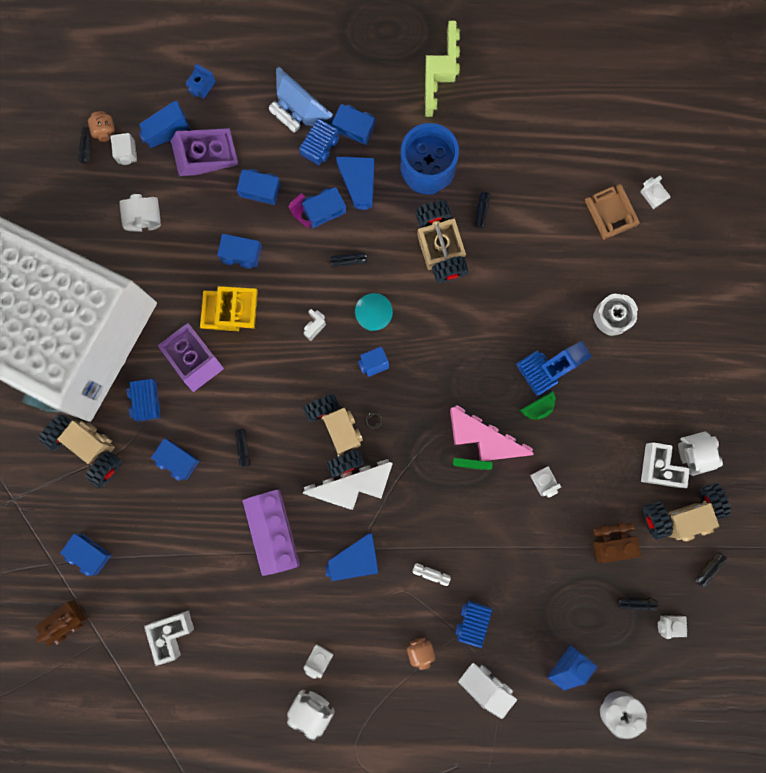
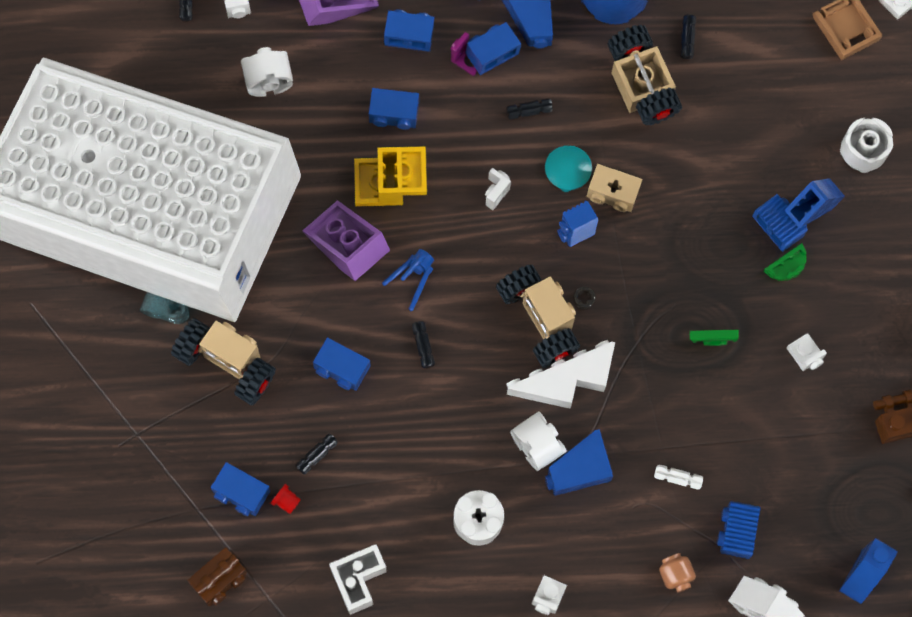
camera: 10 degrees left, 10 degrees down
(121, 565) = (286, 499): none -> red piece
(144, 400) = (294, 296): blue brick -> none
(149, 529) = (316, 454): none -> black axle
(246, 381) = (418, 263): none -> blue plant
(262, 605) = (488, 507): none -> white brick
(271, 532) = (471, 442): medium lavender slope -> none
(321, 539) = (538, 441): none -> white brick
(402, 324) = (608, 178): none -> tan brick
(490, 442) = (732, 309): bright pink slope -> none

